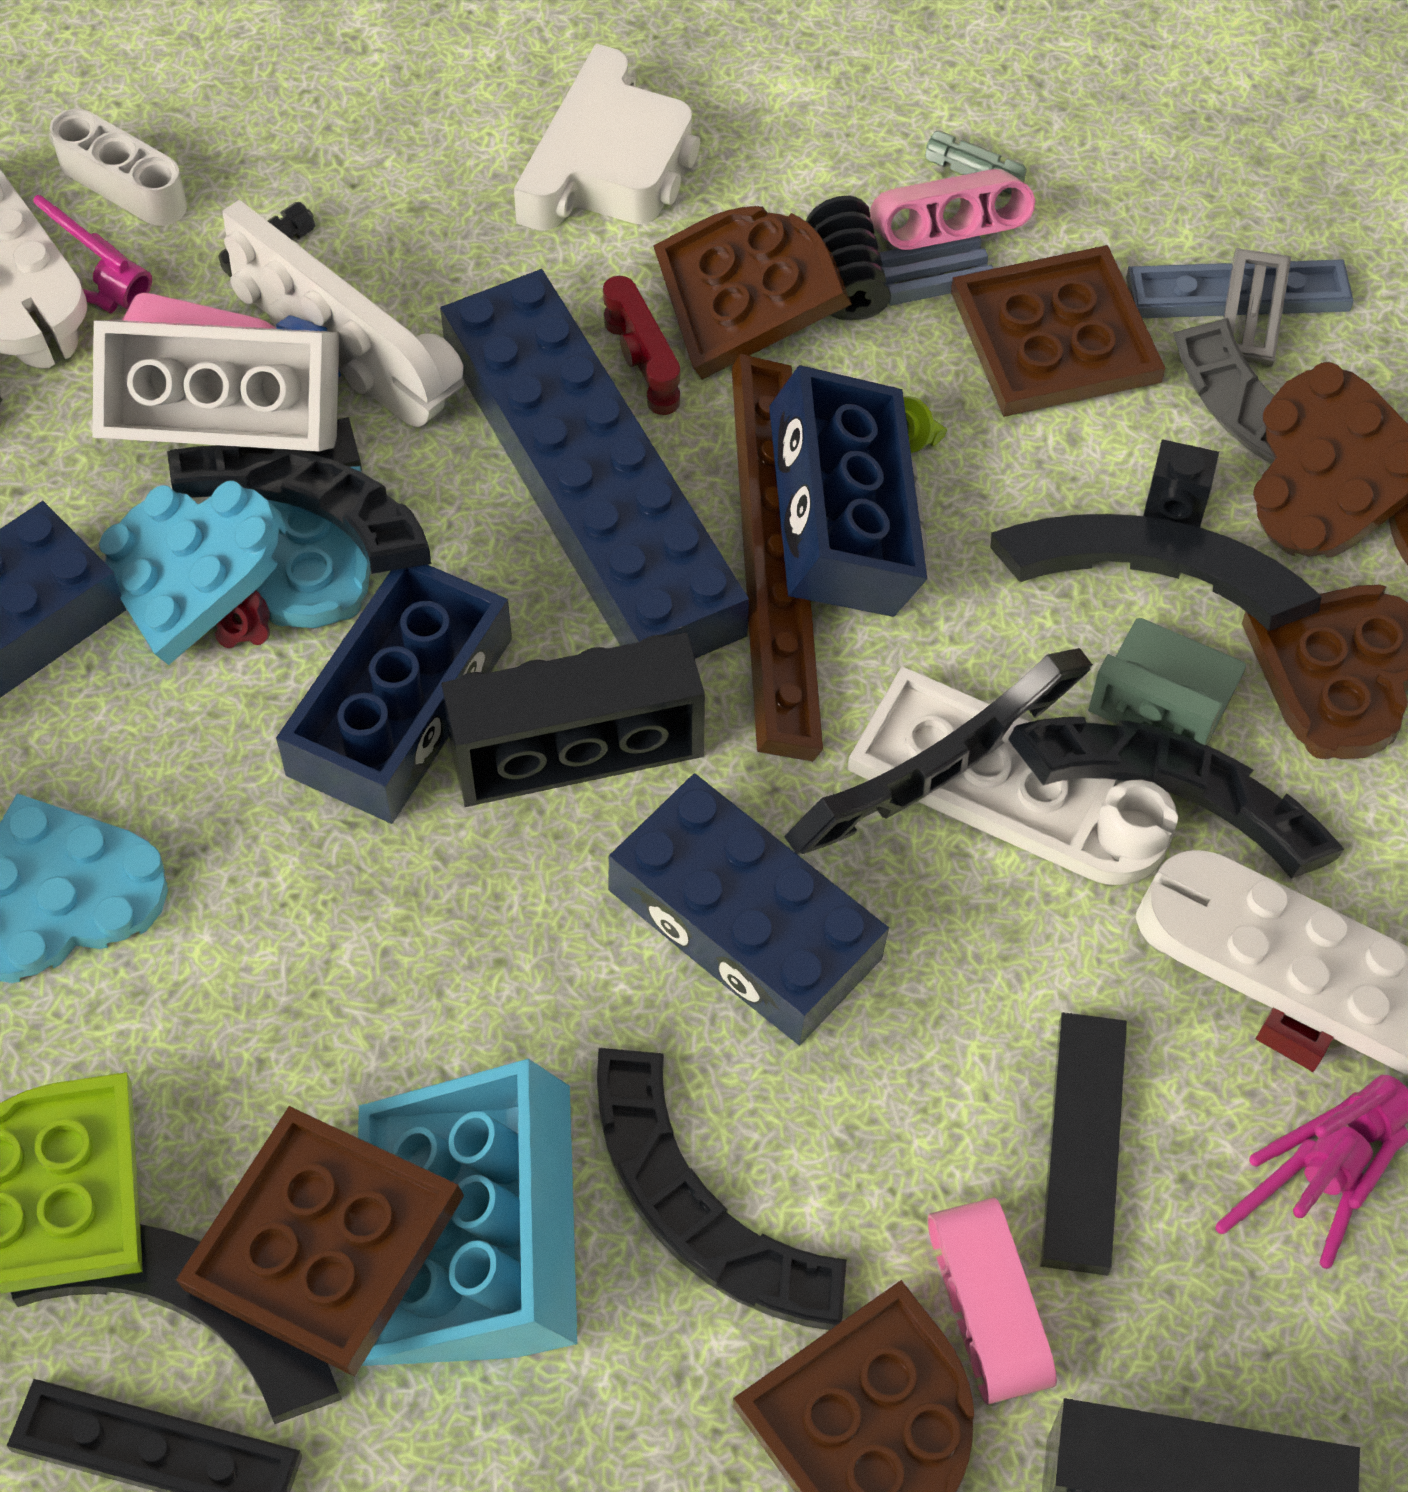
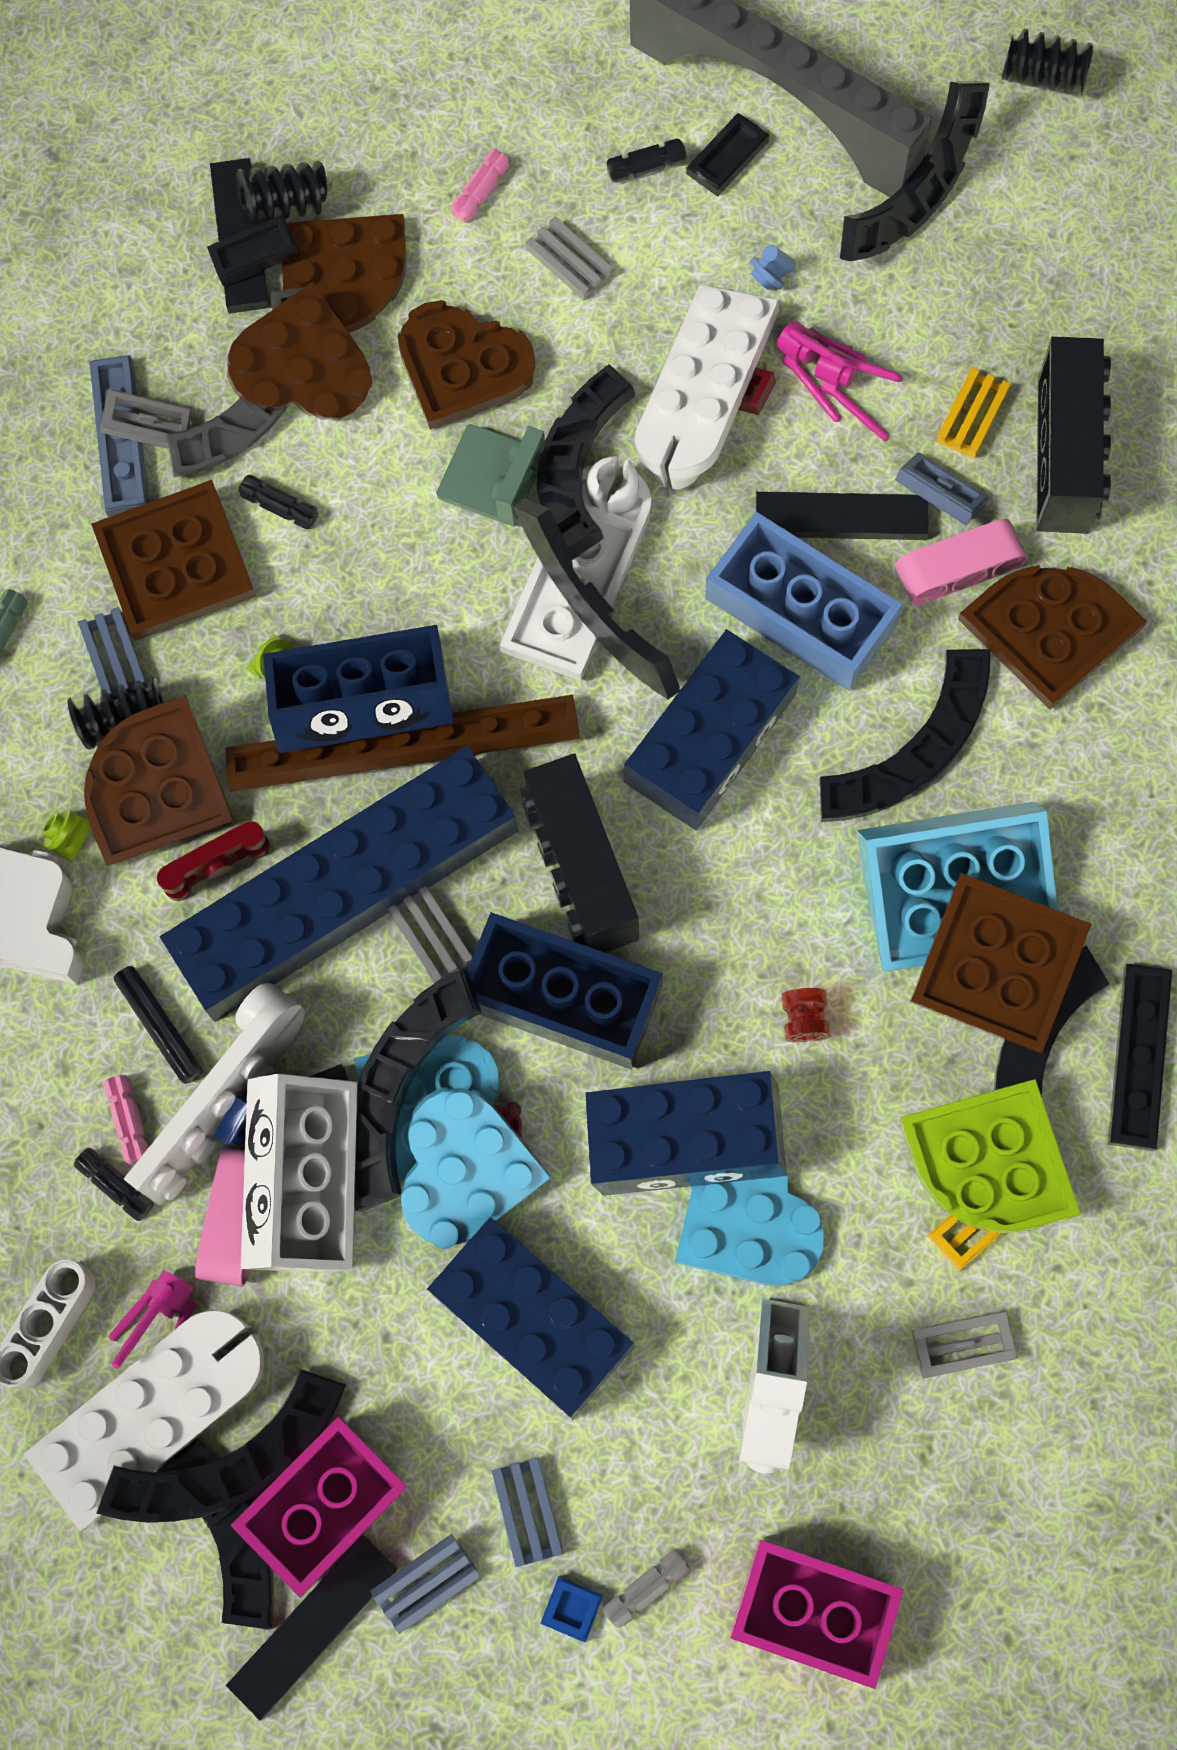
camera: 90 degrees left, 15 degrees up
(165, 805) = (685, 1133): none -> dark blue brick
(308, 985) = (805, 1015): none -> clear red wheel
(351, 254) = (126, 1118): none -> bright pink axle
(454, 285) = (158, 1024): none -> black axle
(514, 555) = (411, 904): none -> light grey tile
(696, 207) = (66, 833): none -> lime plate
(932, 1049) = (802, 600): none -> medium blue brick
(976, 212) = (61, 638): bright pink beam -> none
(1130, 1258) = (942, 488): none -> sand blue tile
(1136, 446) = (278, 501): none -> black axle
(1161, 547) = (375, 481): black tile -> none
(1181, 483) = (323, 467): black brick -> none
(1274, 1344) = (987, 383): none -> yellow tile

